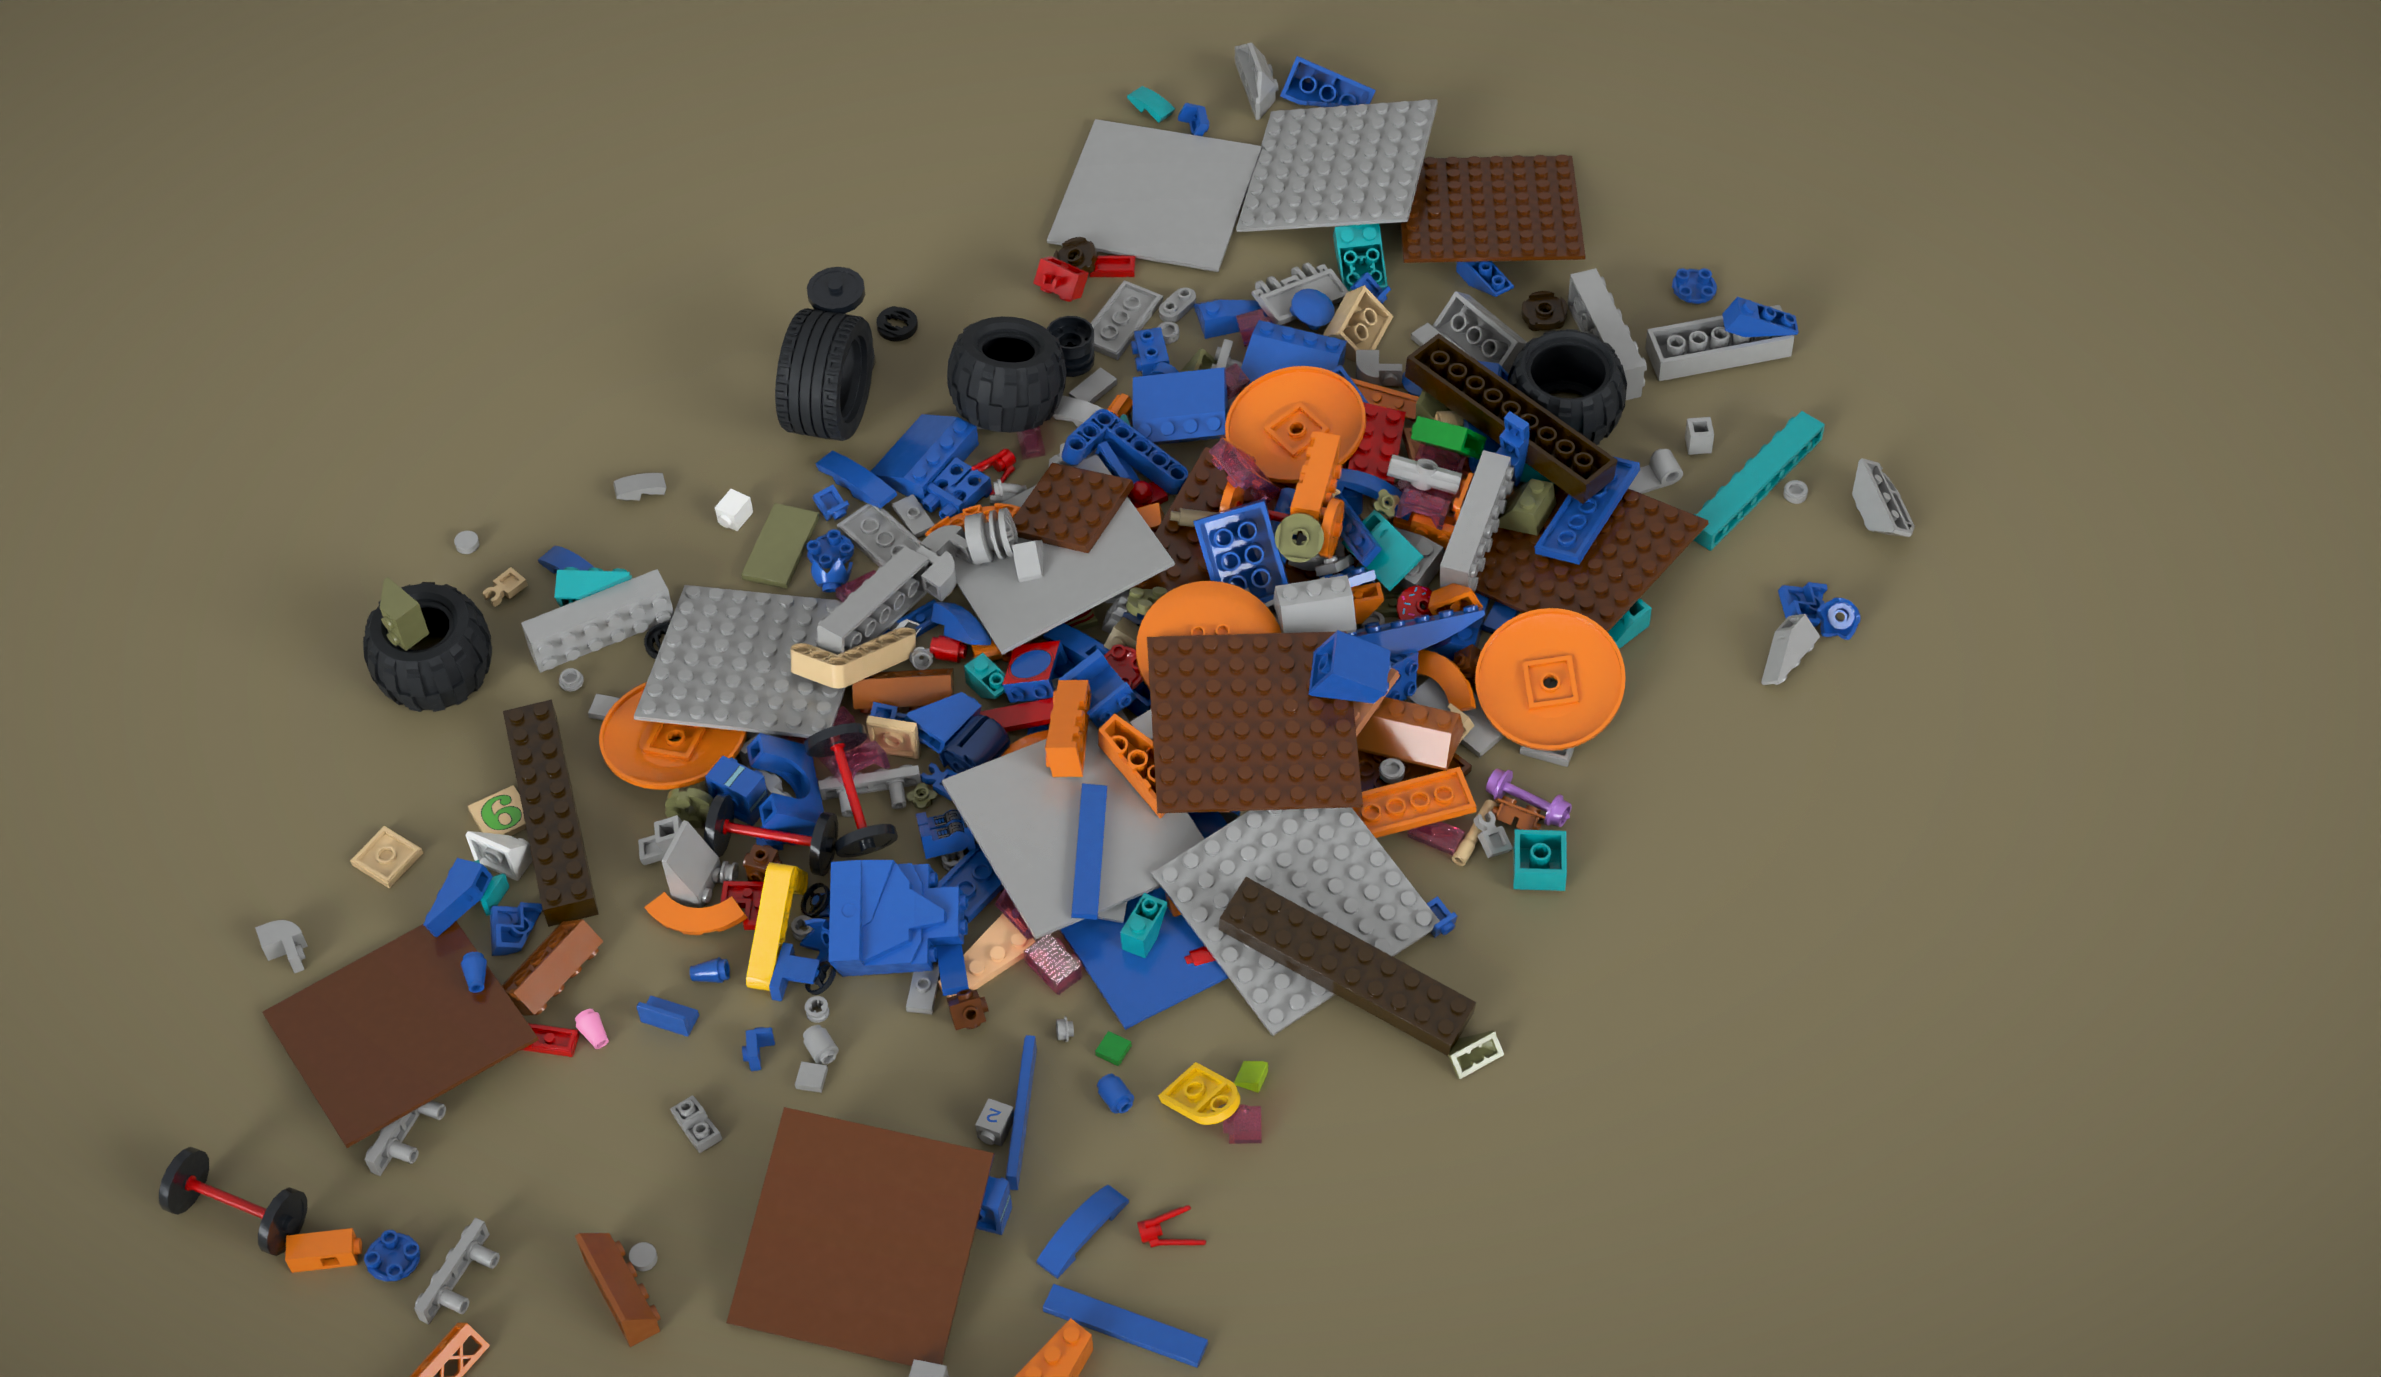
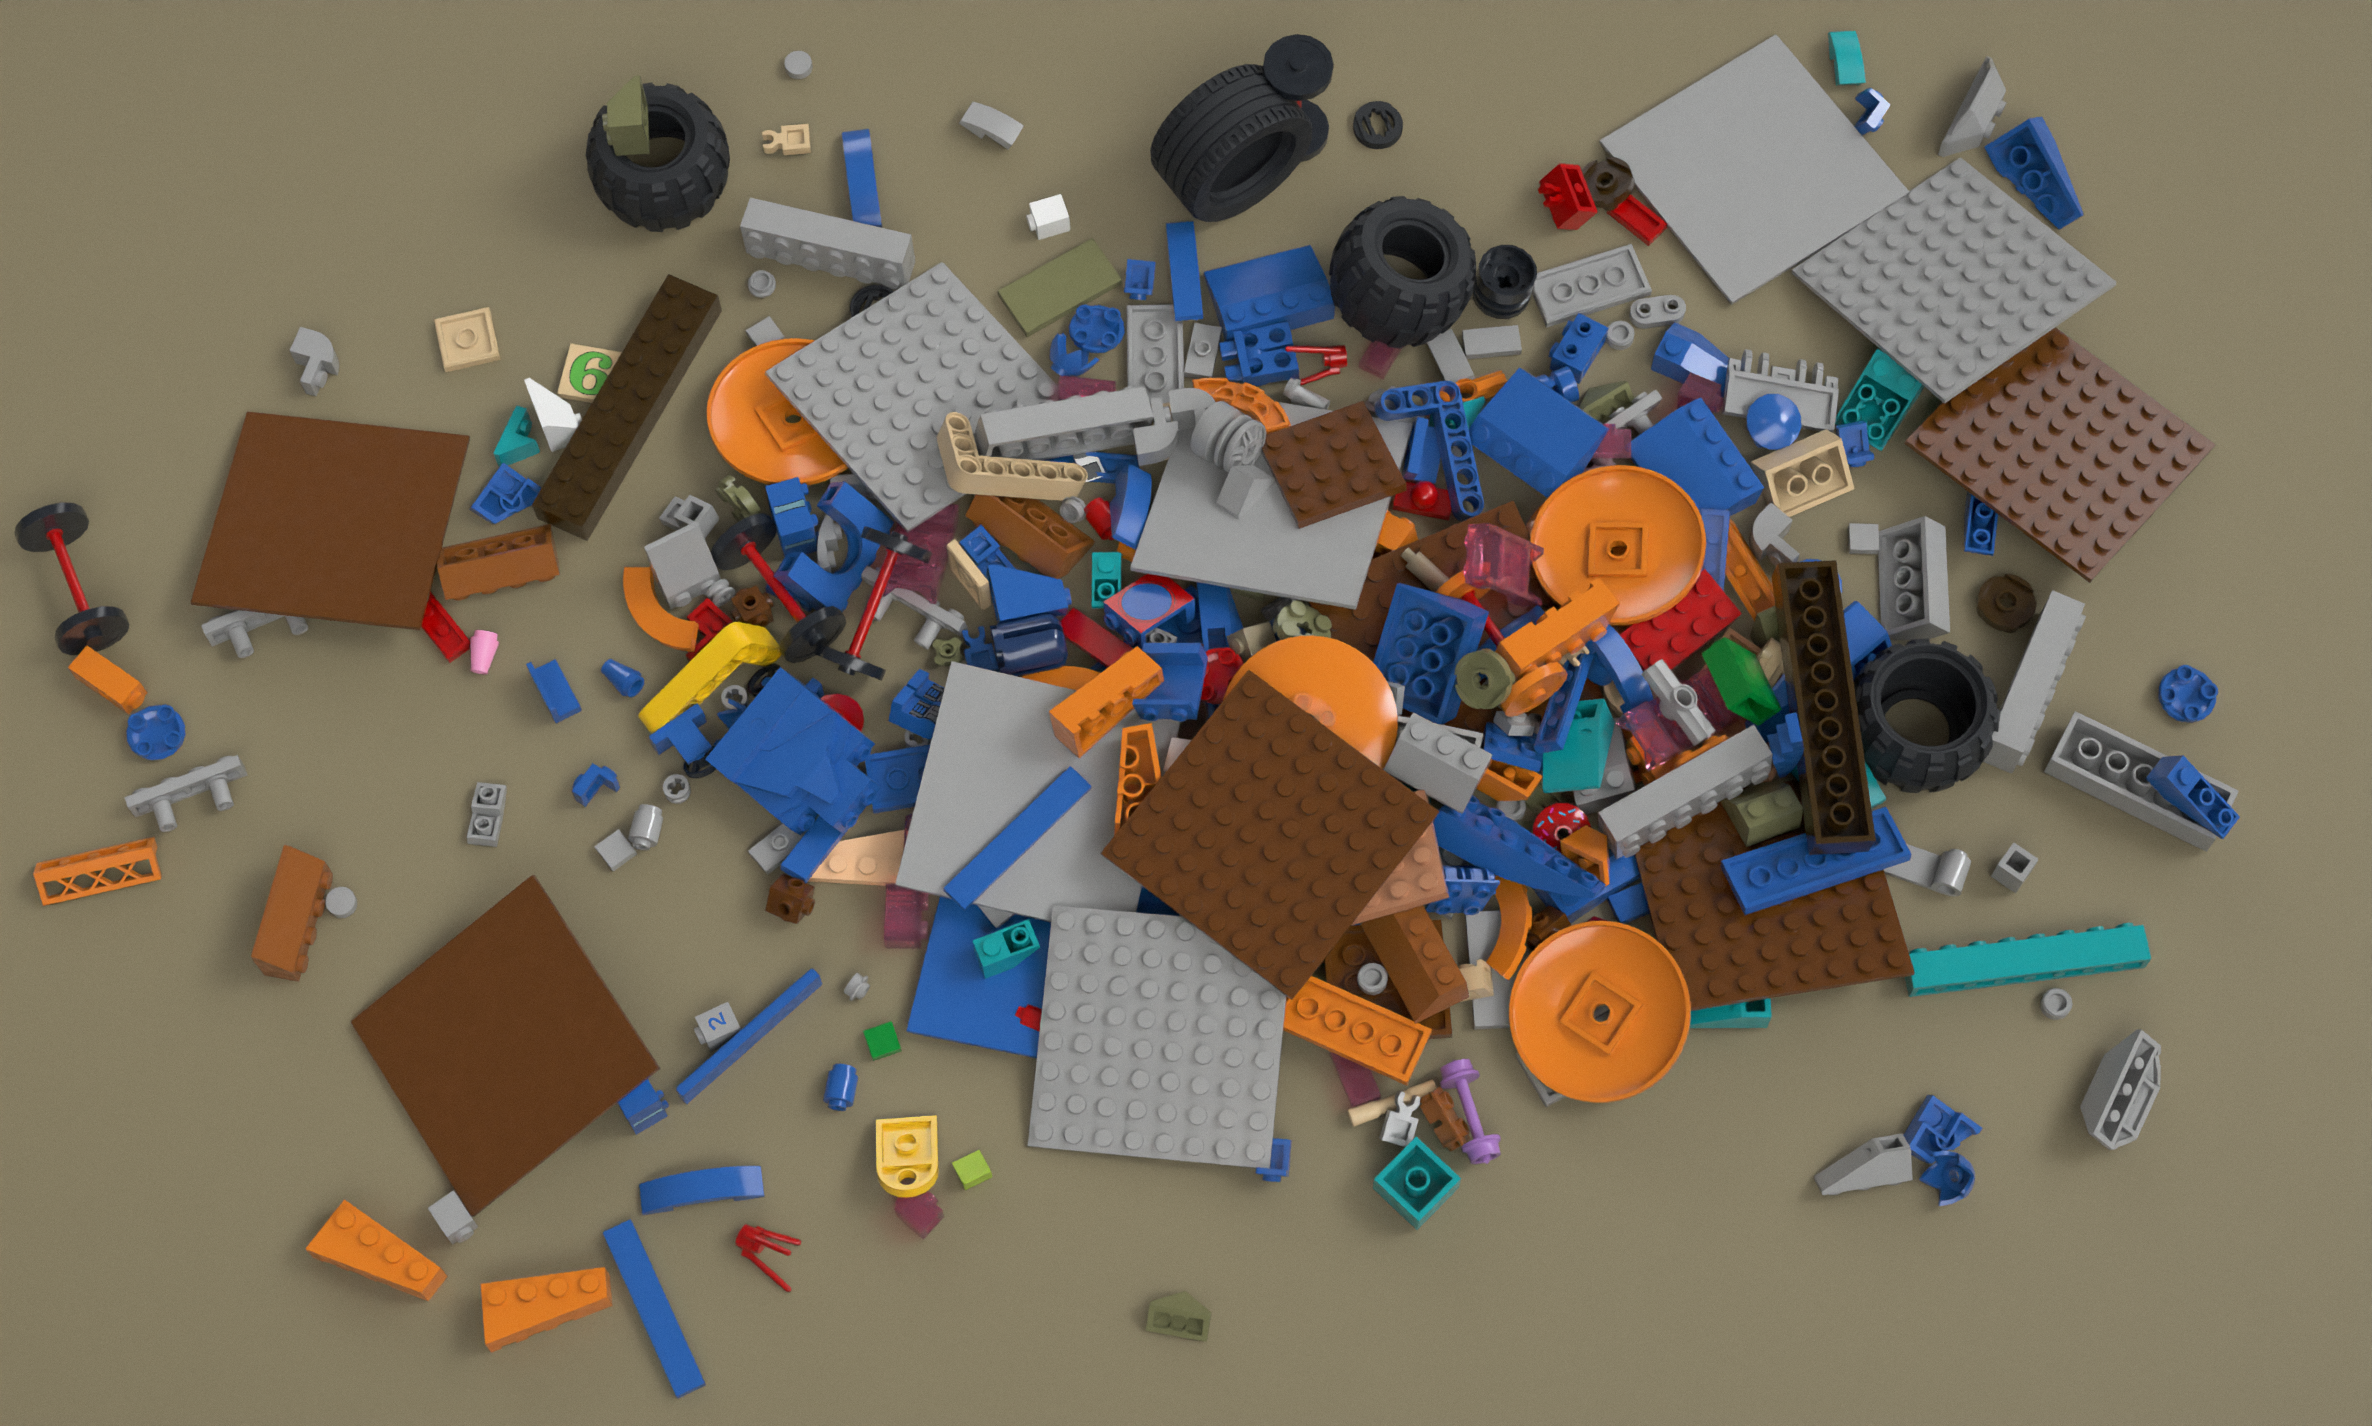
camera: 40 degrees right, 15 degrees up
(459, 893) = (479, 431): blue slope -> none
(474, 970) = (428, 517): blue cone -> none
(577, 584) = (835, 198): teal slope -> none
(1347, 966) = (1137, 1142): dark brown brick -> none
(1350, 669) = (1395, 859): blue slope -> none
(1380, 506) = (1609, 699): olive plate -> none

